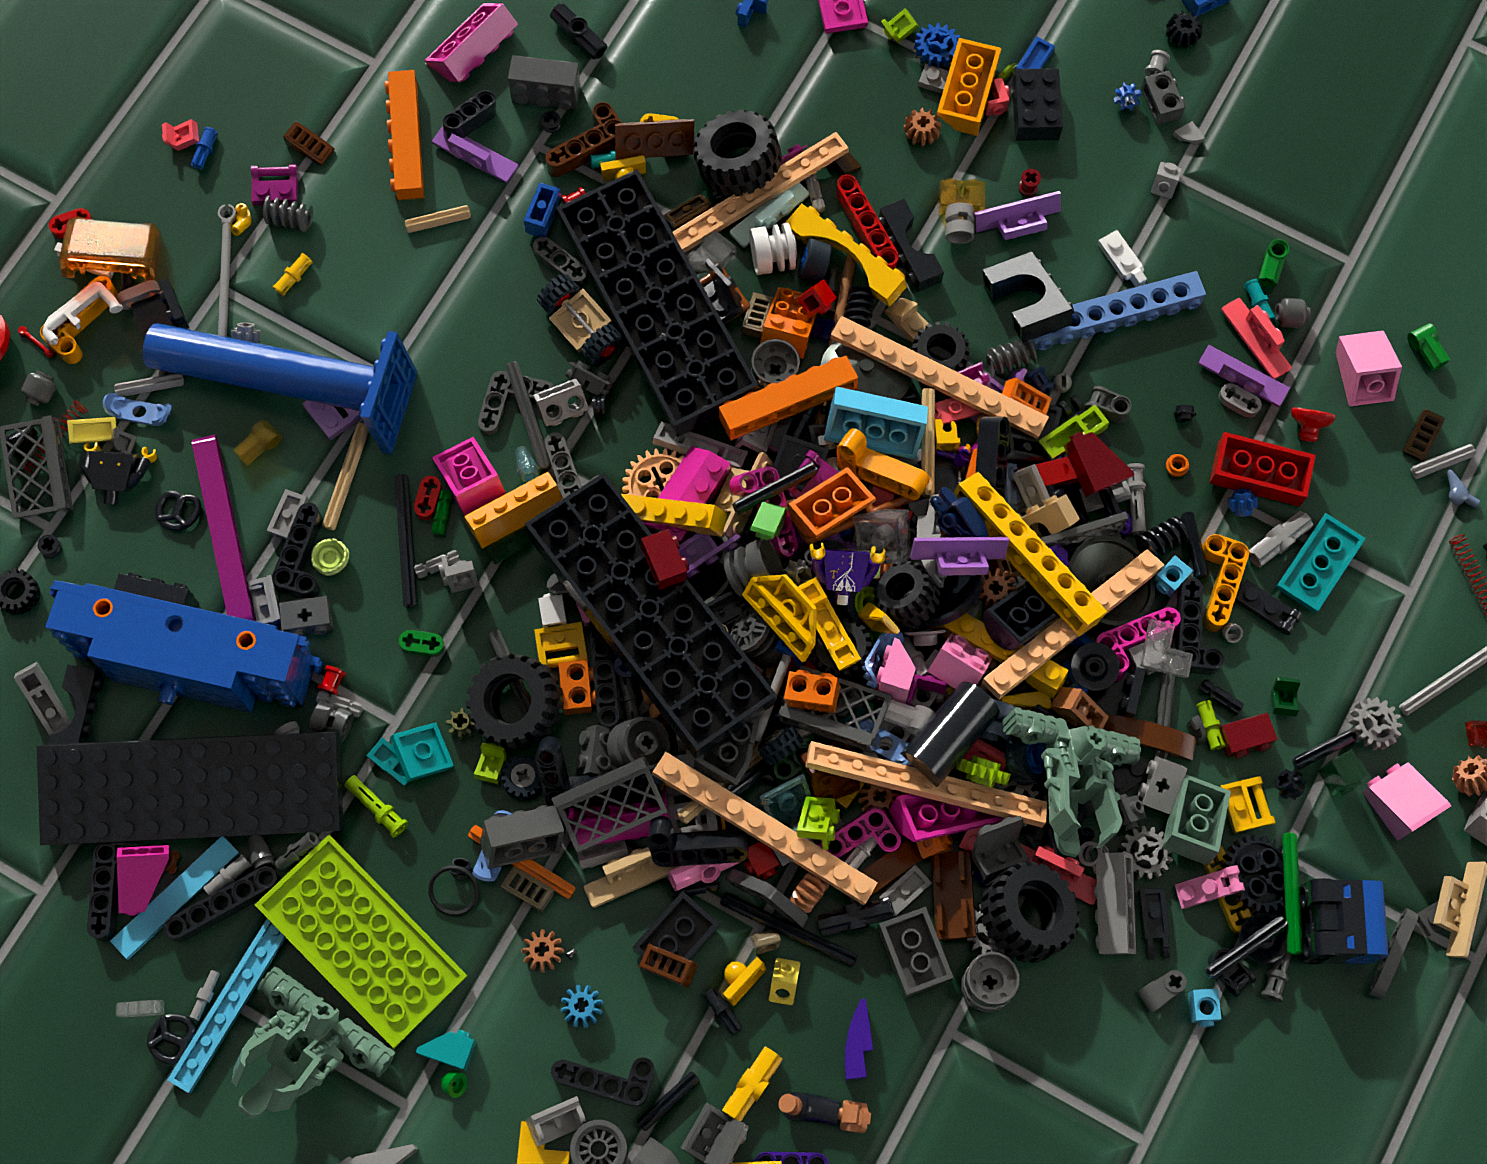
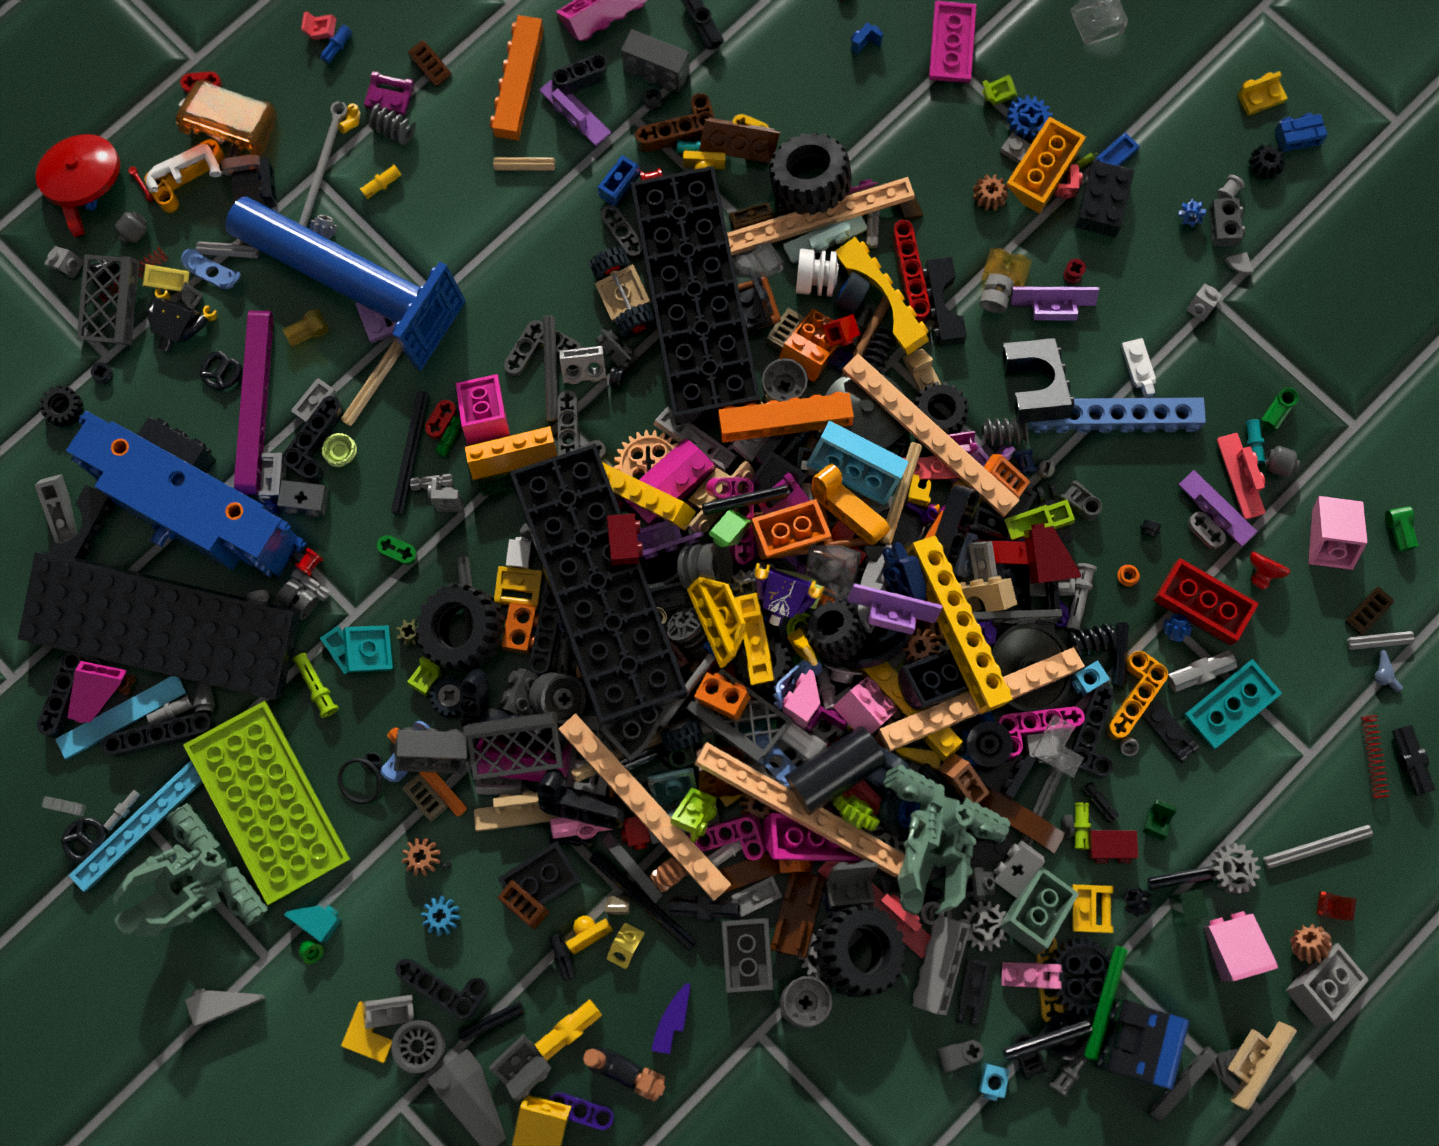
camera: 20 degrees right, 5 degrees up
(296, 851) = (234, 707): dark grey pin -> none
(525, 464) = (535, 413): clear light blue cone -> none

